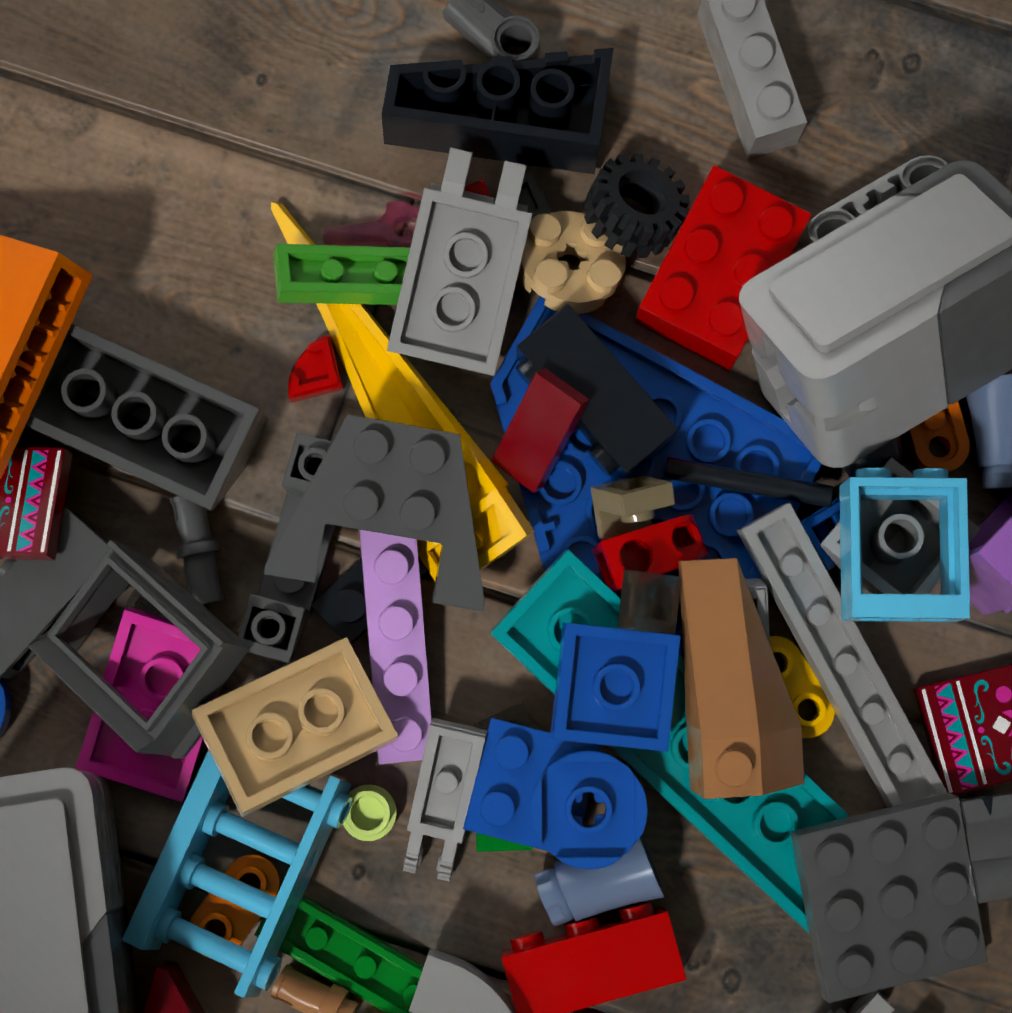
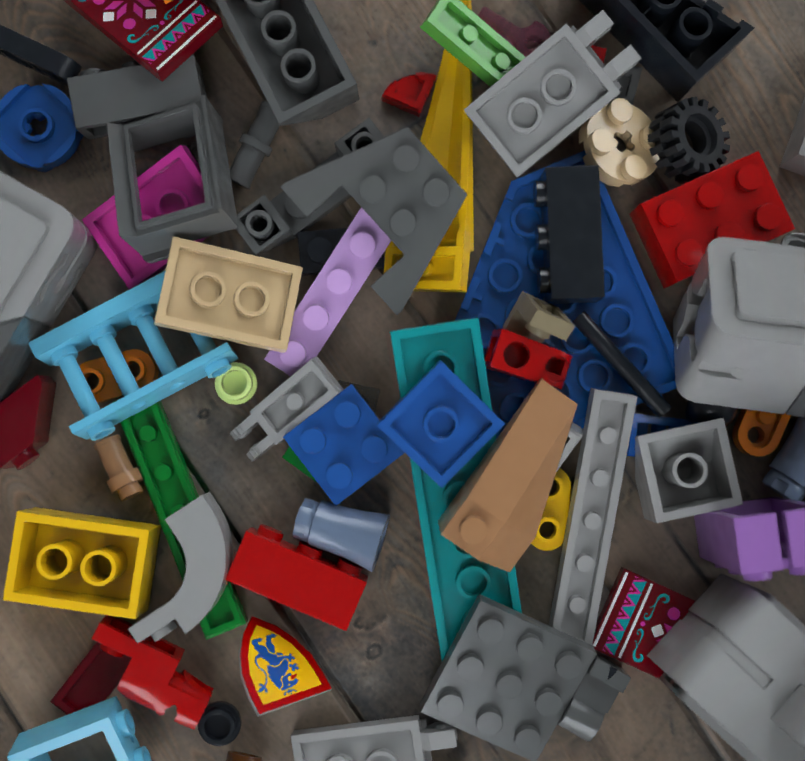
camera: 30 degrees right, 5 degrees up
(539, 430) = (519, 231): dark red tile -> none
(612, 832) = (366, 510): blue plate -> none
(649, 601) = (502, 388): clear smoke plate -> none
(926, 484) = (731, 450): medium azure window -> none

